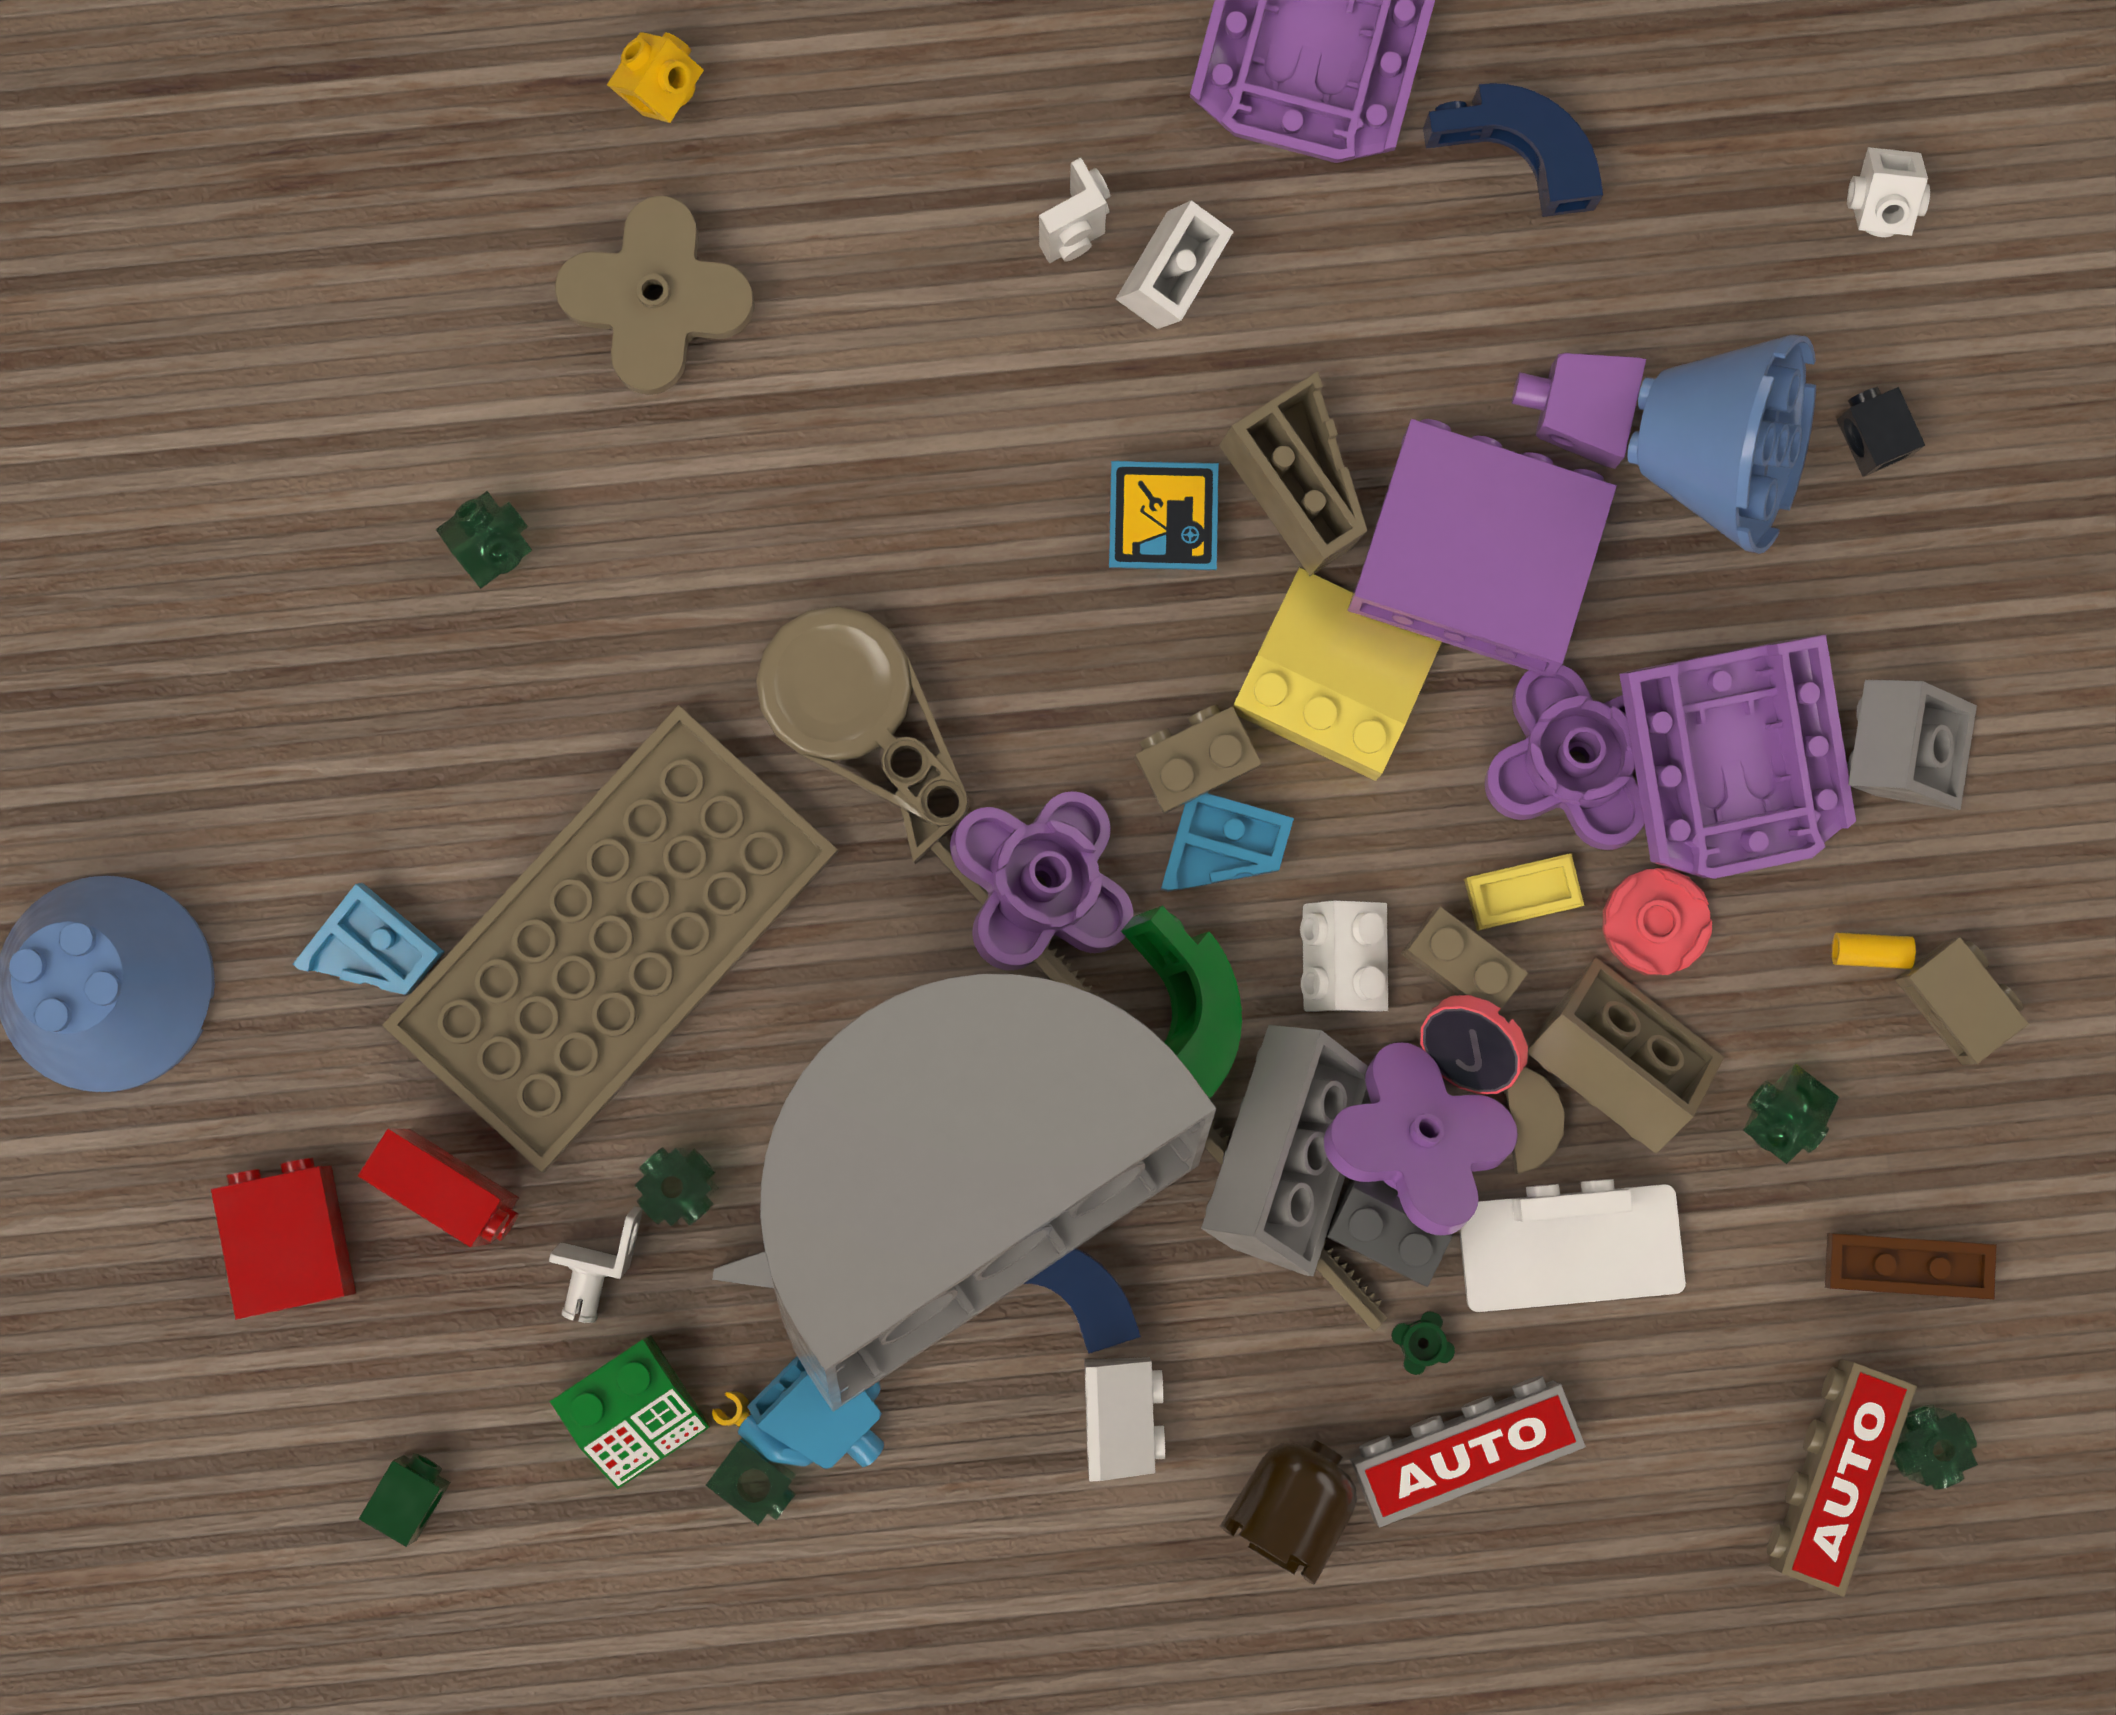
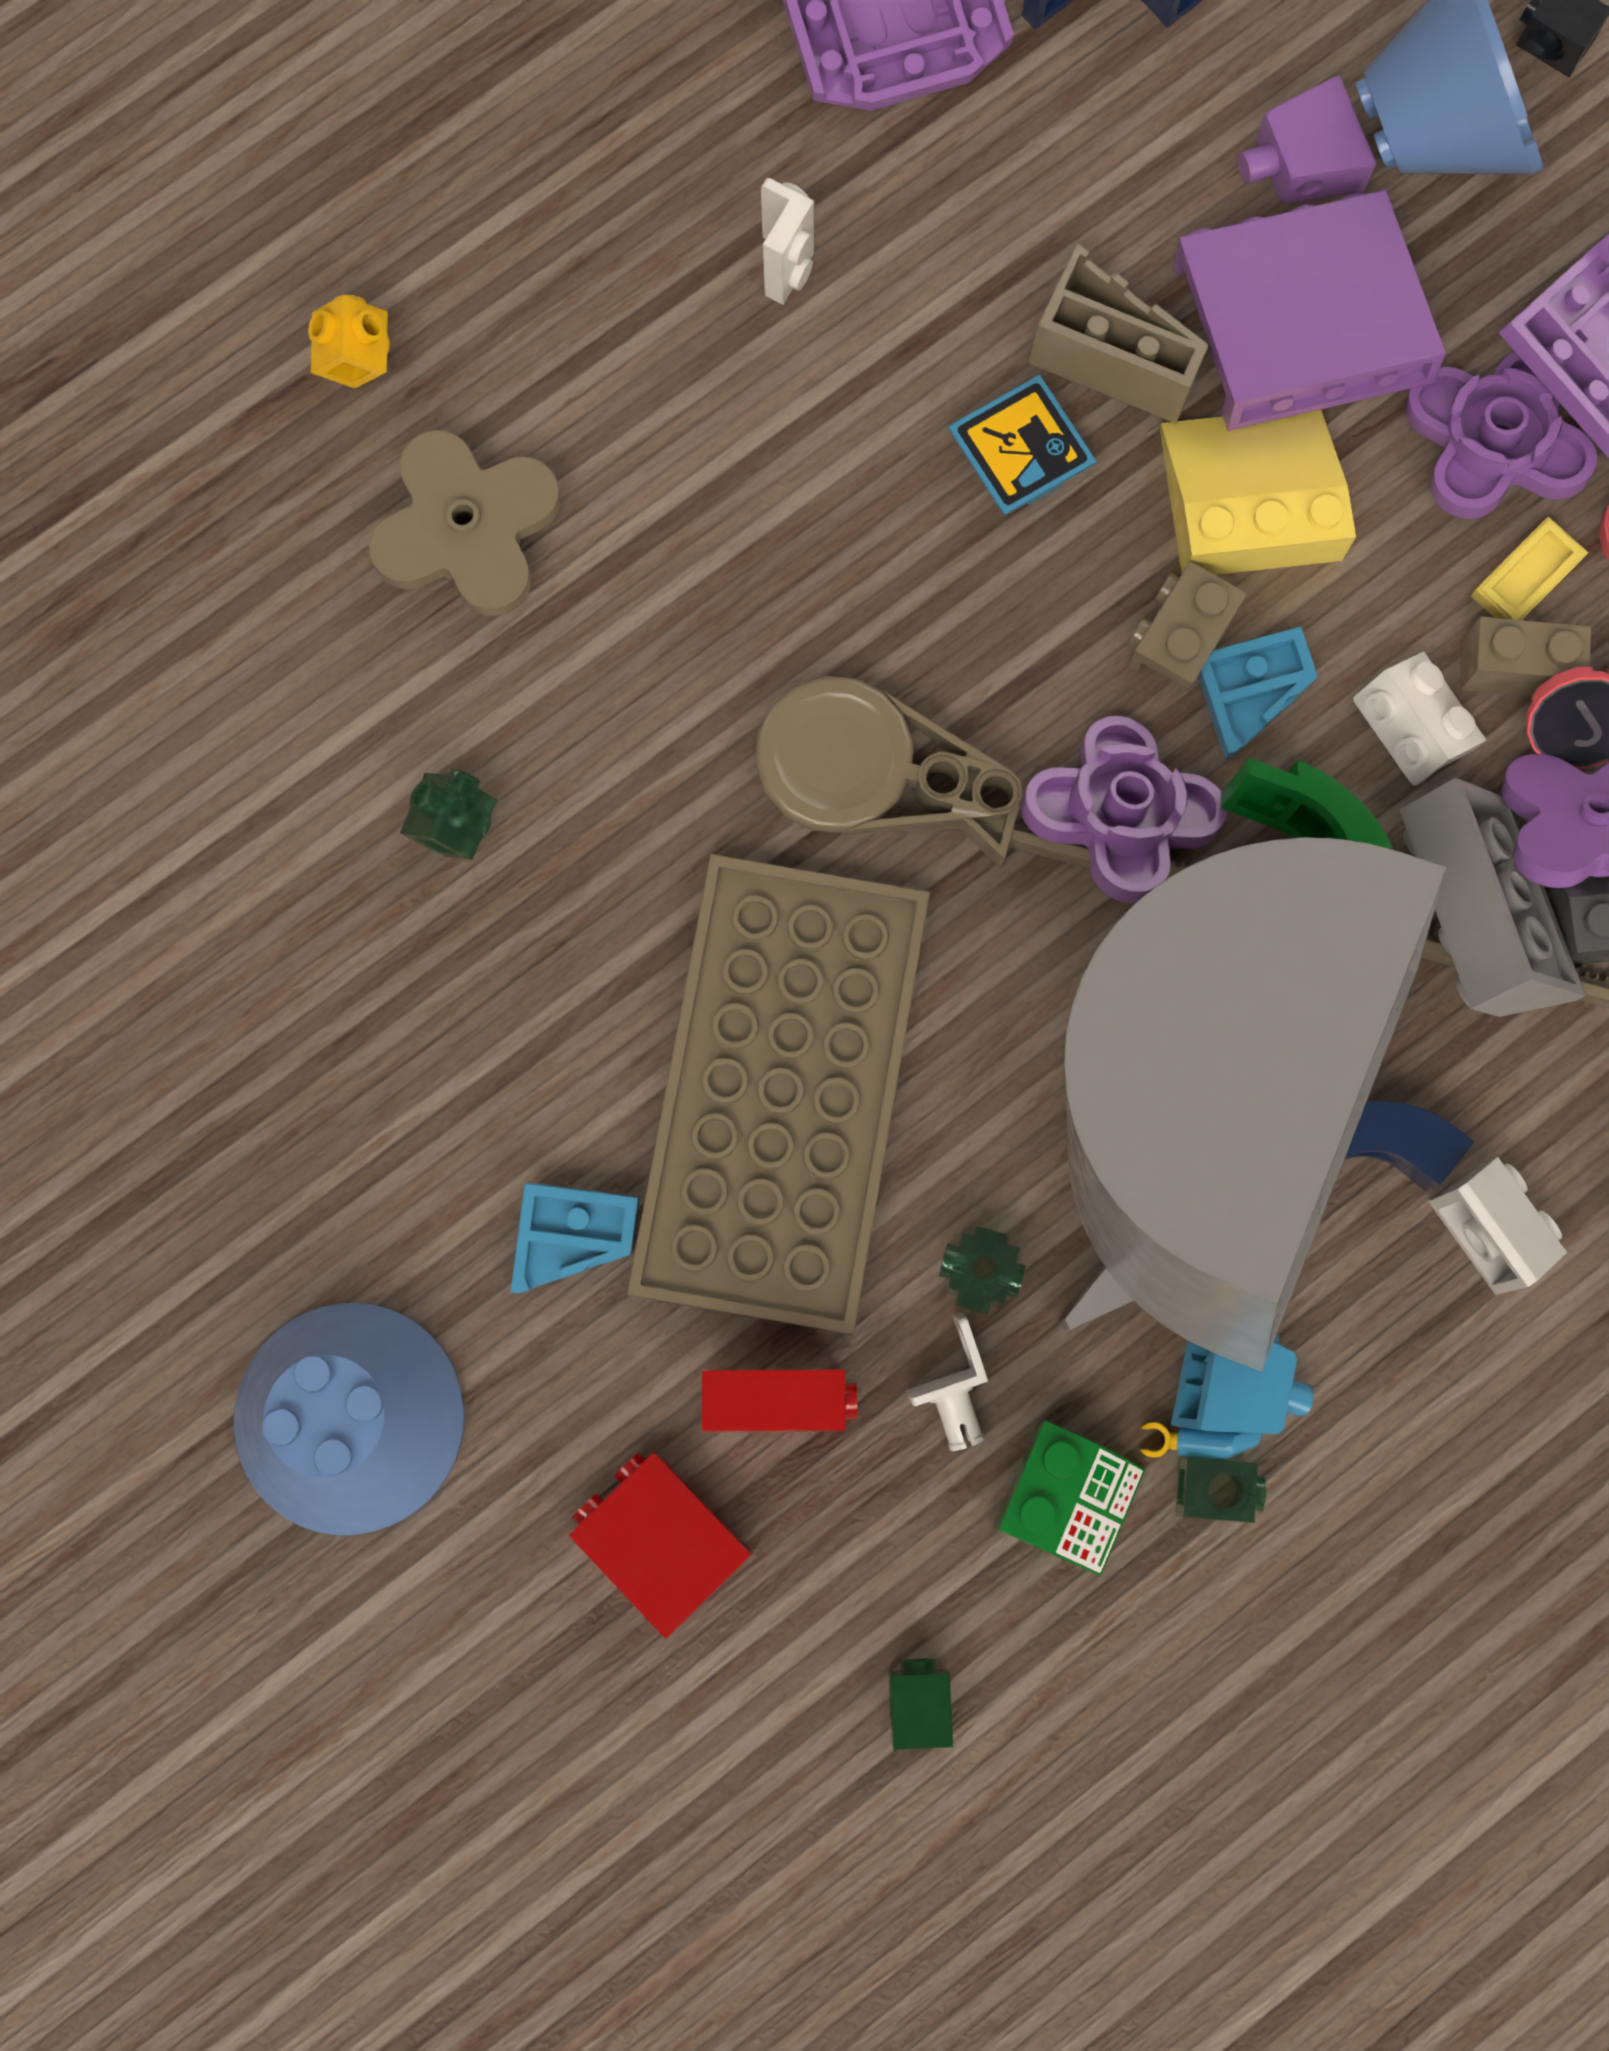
camera: 30 degrees left, 5 degrees down
(1174, 265) = (896, 233): white brick -> none

